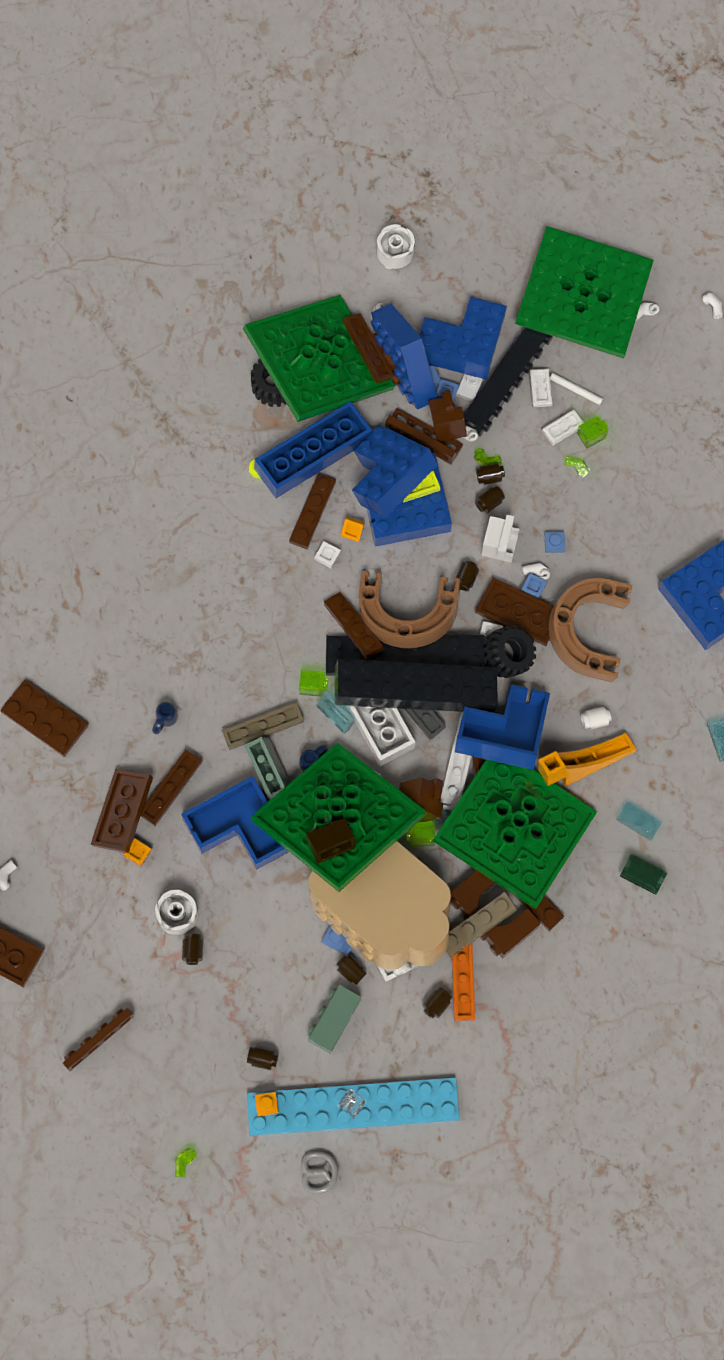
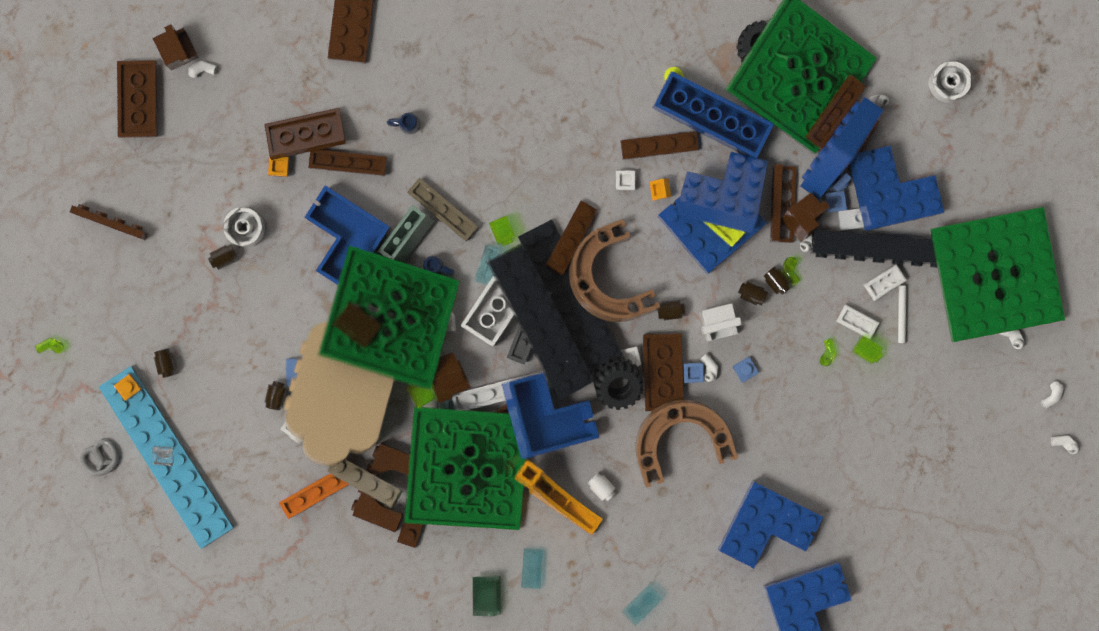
camera: 65 degrees right, 15 degrees up
(334, 1018) = (227, 403): sand green brick -> none
(437, 1003) = (285, 481): dark brown brick -> none

